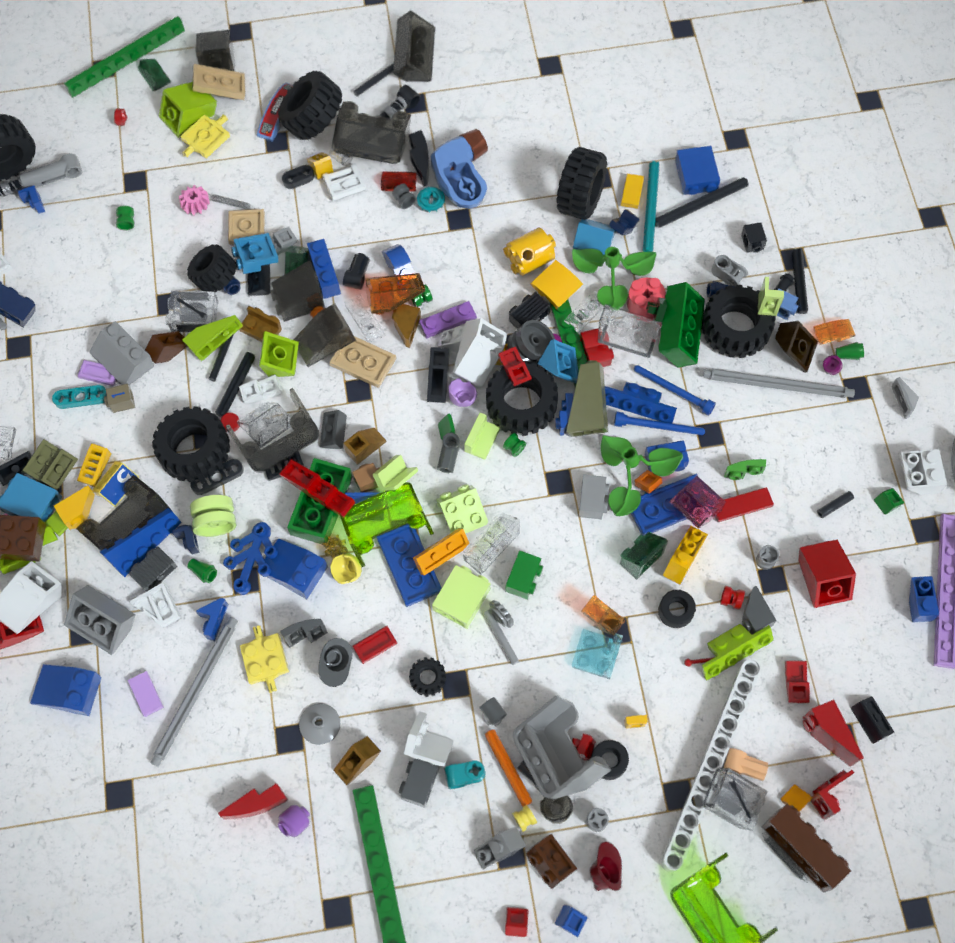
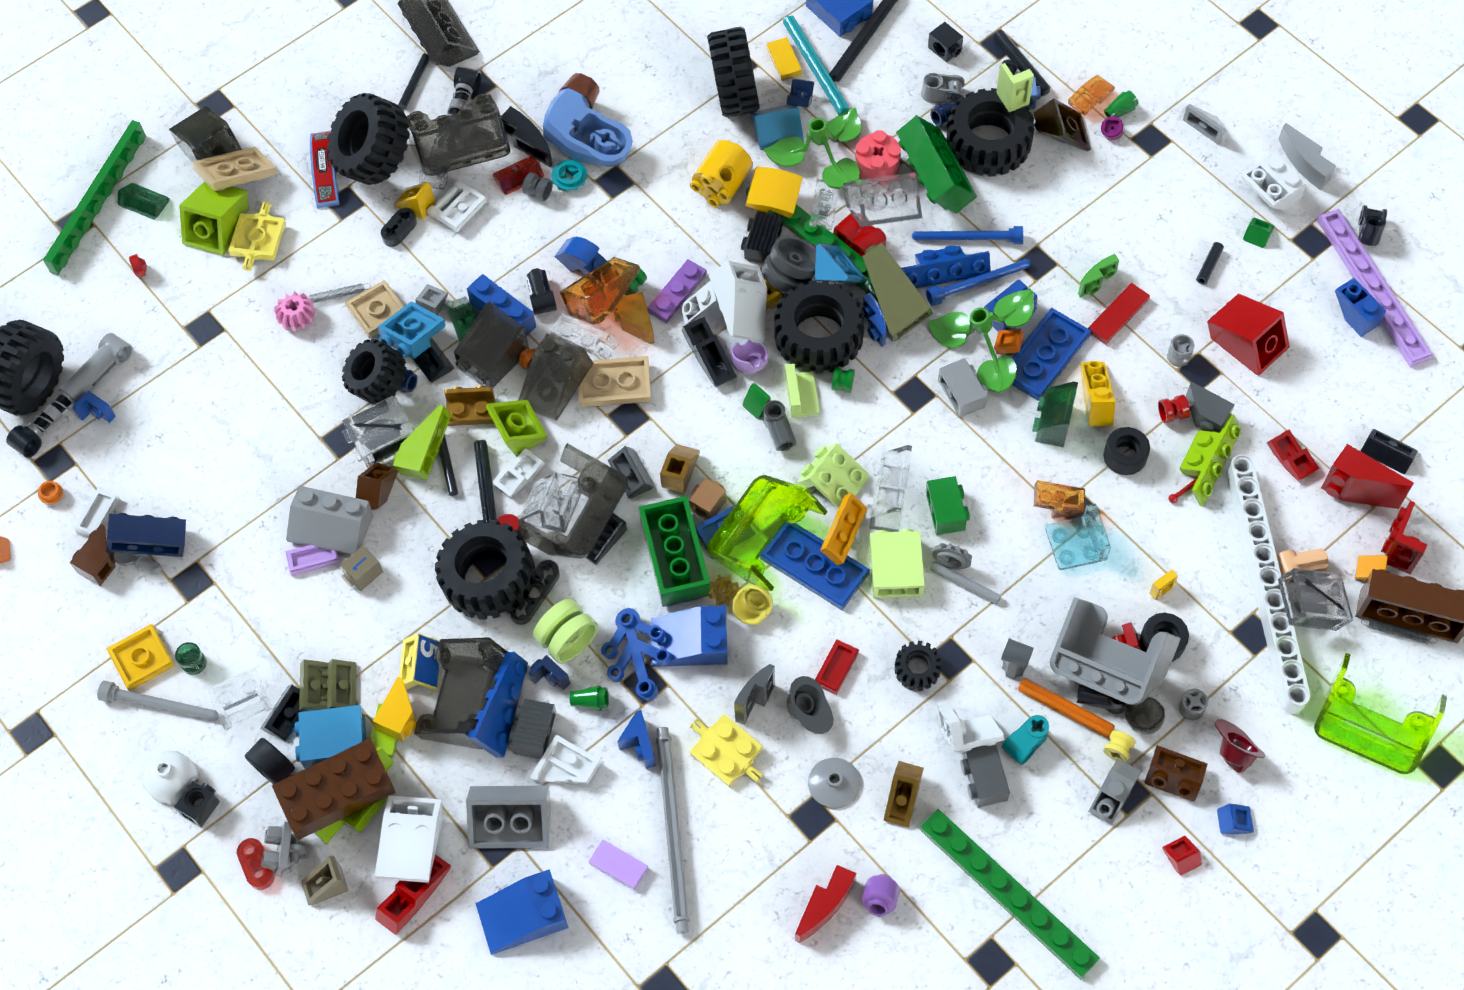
camera: 30 degrees left, 5 degrees down
(66, 403) = (312, 583): teal beam -> none
(90, 456) = (375, 642): yellow slope -> none
(125, 217) = (224, 372): green wheel -> none
(317, 488) = (669, 535): red slope -> none
(393, 474) = (737, 480): yellowish green panel -> none
(514, 366) = (796, 296): red slope -> none
(658, 309) = (903, 159): dark green tile -> none
(698, 502) = (1078, 330): clear pink slope -> none
(778, 383) = (1071, 174): light grey piece -> none

